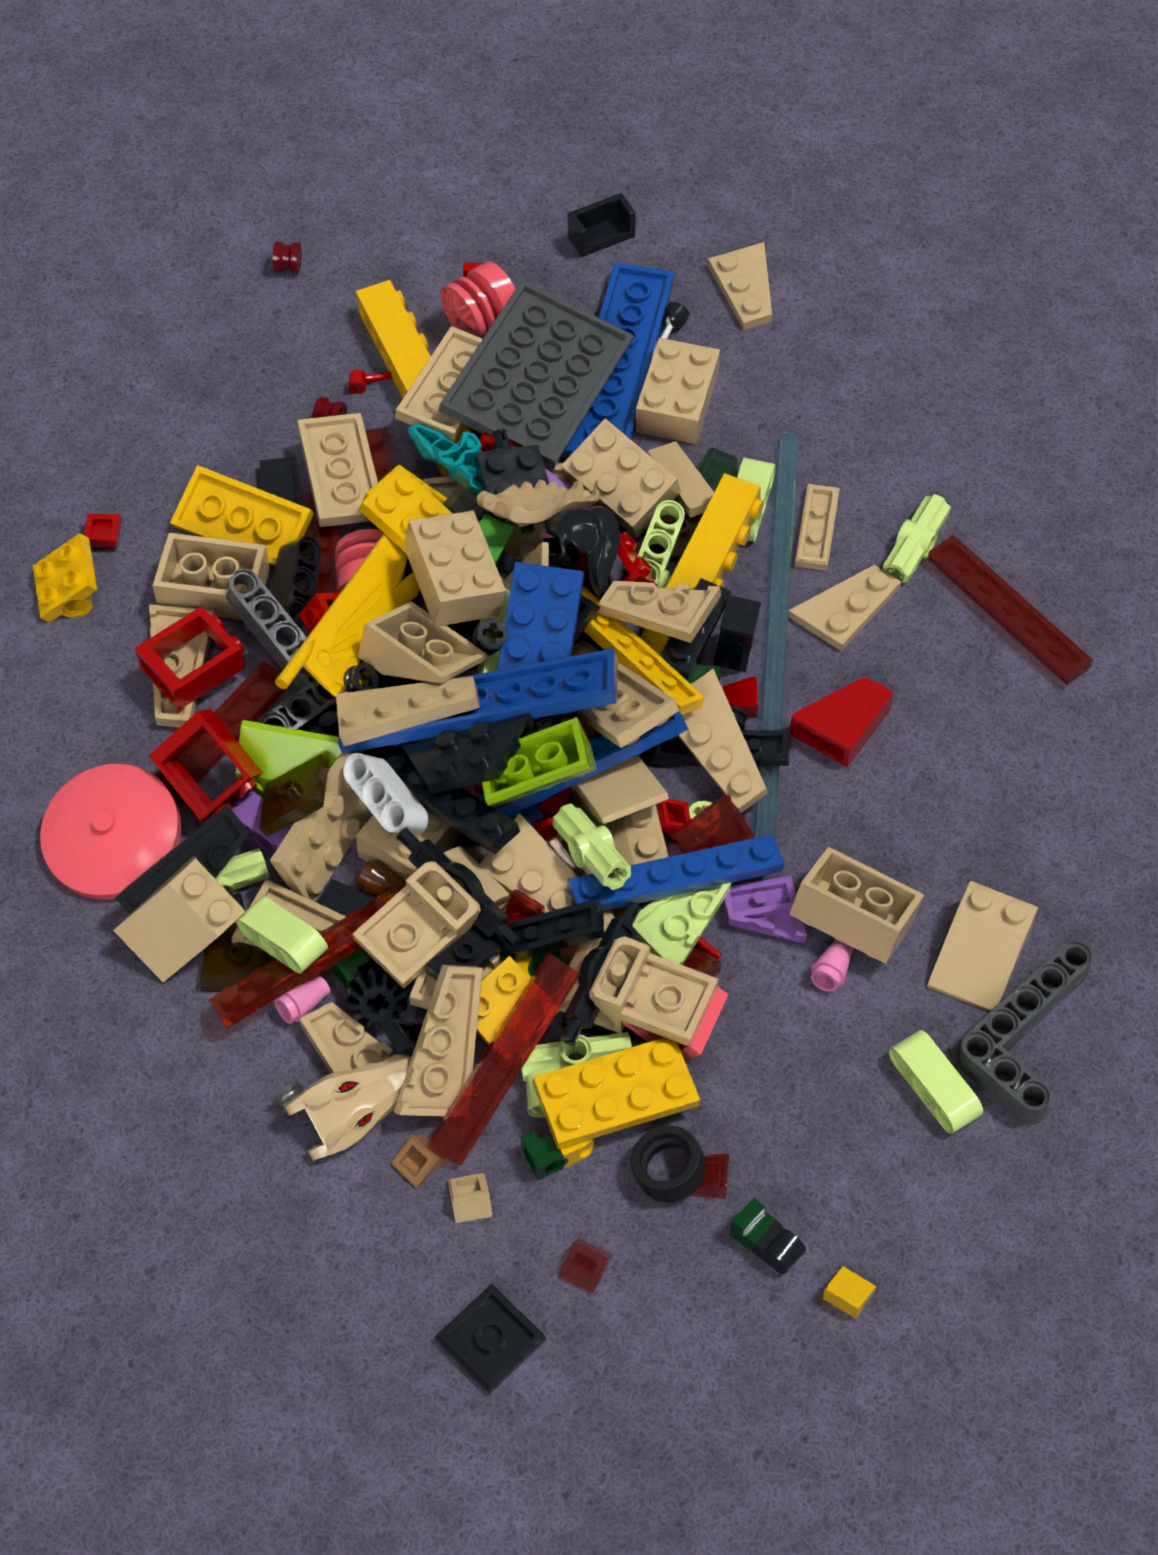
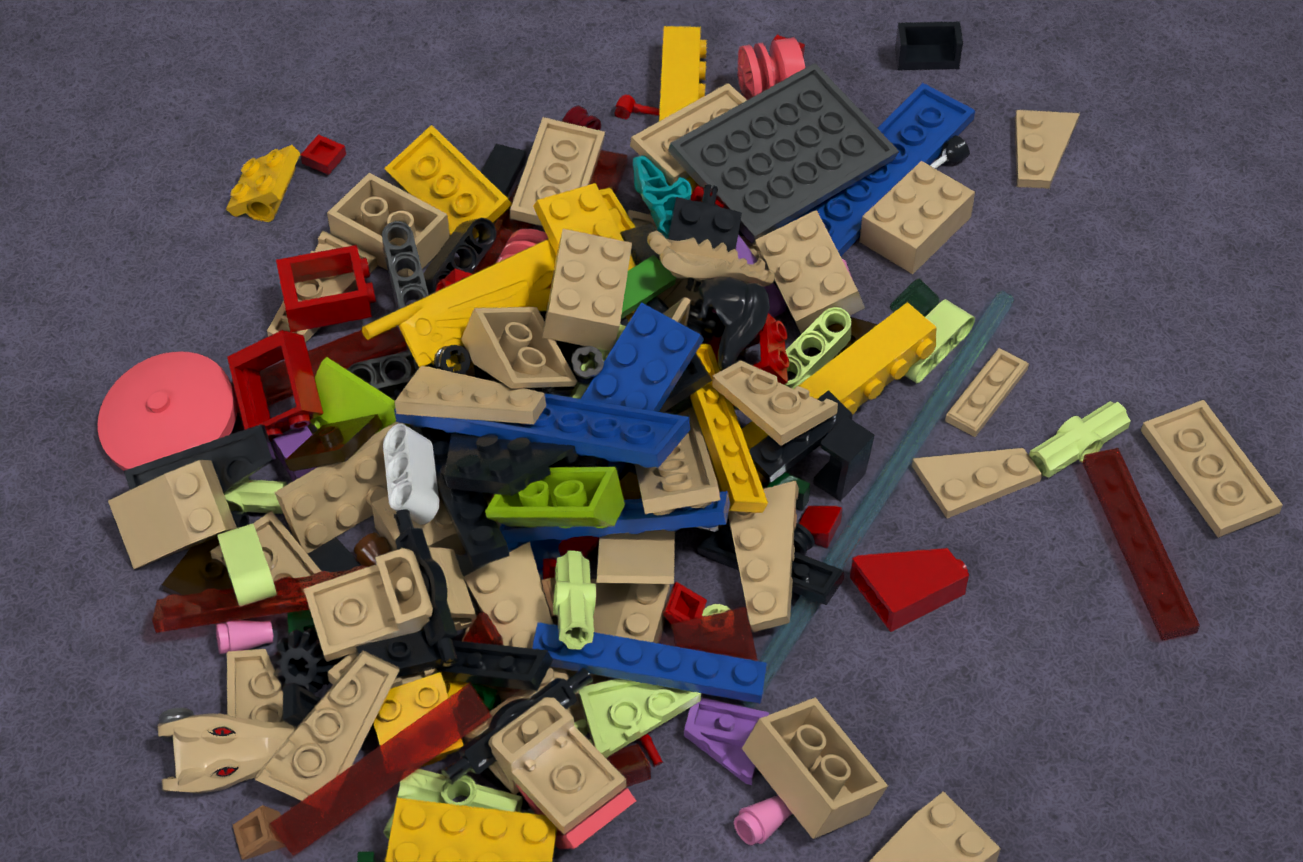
camera: 25 degrees right, 5 degrees down
(695, 491) = (876, 292): tan tile -> none
(1033, 522) = (1211, 468): none -> tan plate

